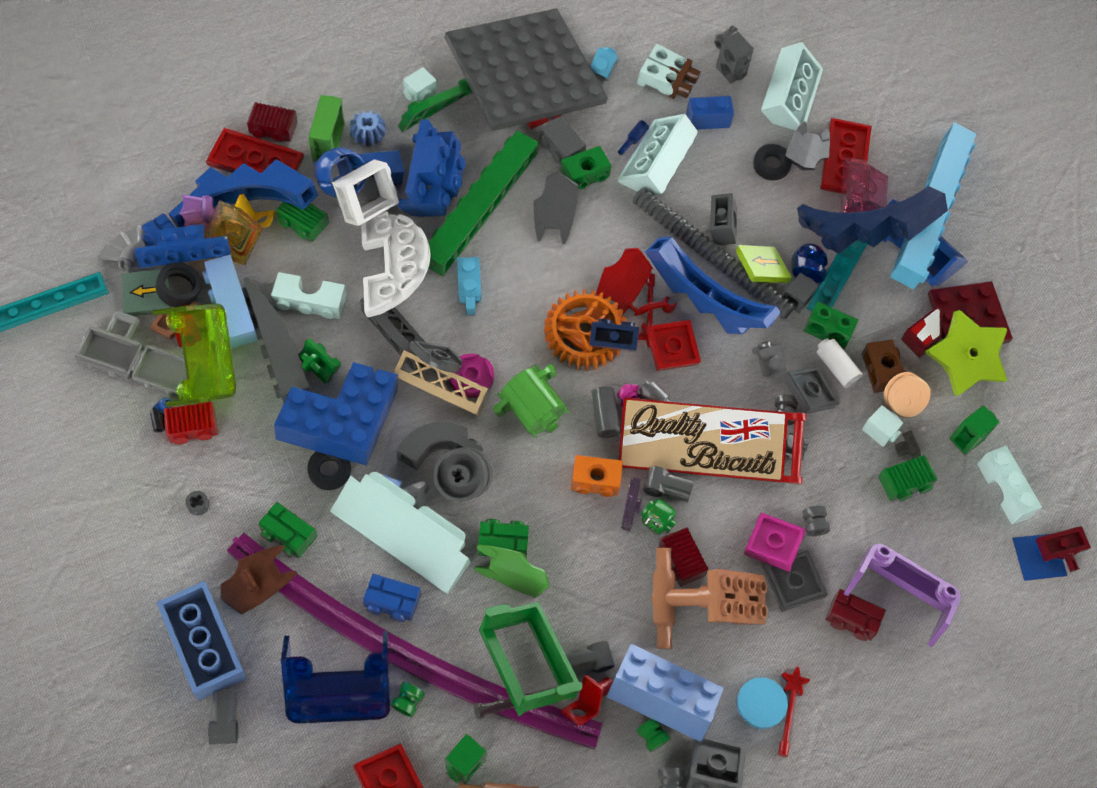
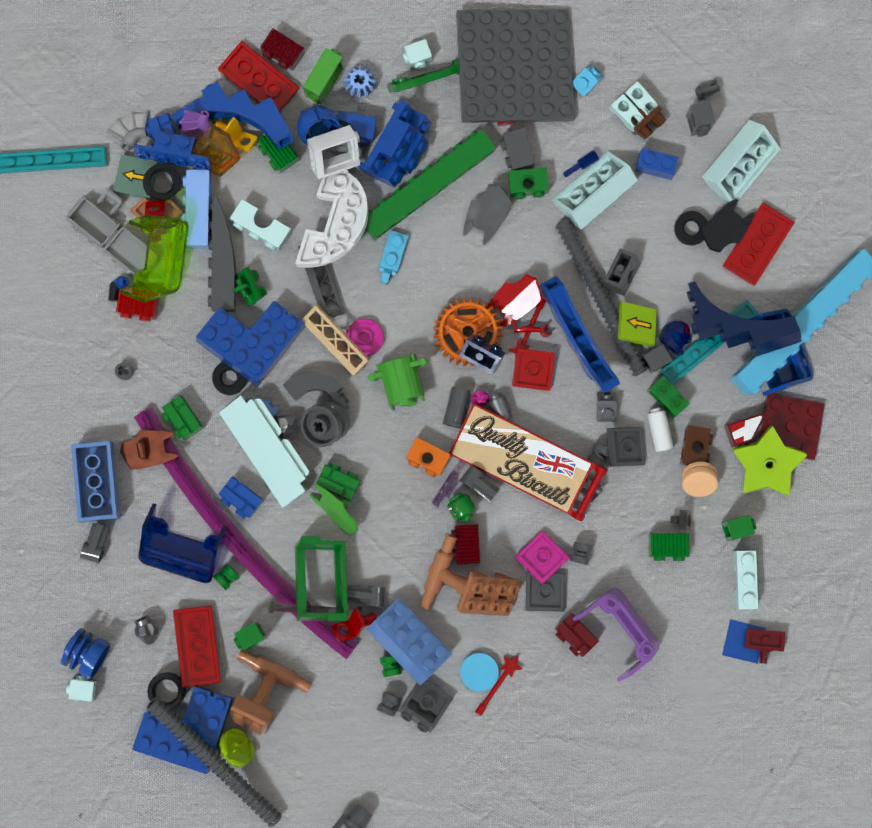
camera: 25 degrees right, 20 degrees up
(437, 356) = (340, 318): dark grey tile -> none
(862, 186) = (753, 286): clear pink wedge -> none
(883, 426) = (670, 497): light aqua brick -> none

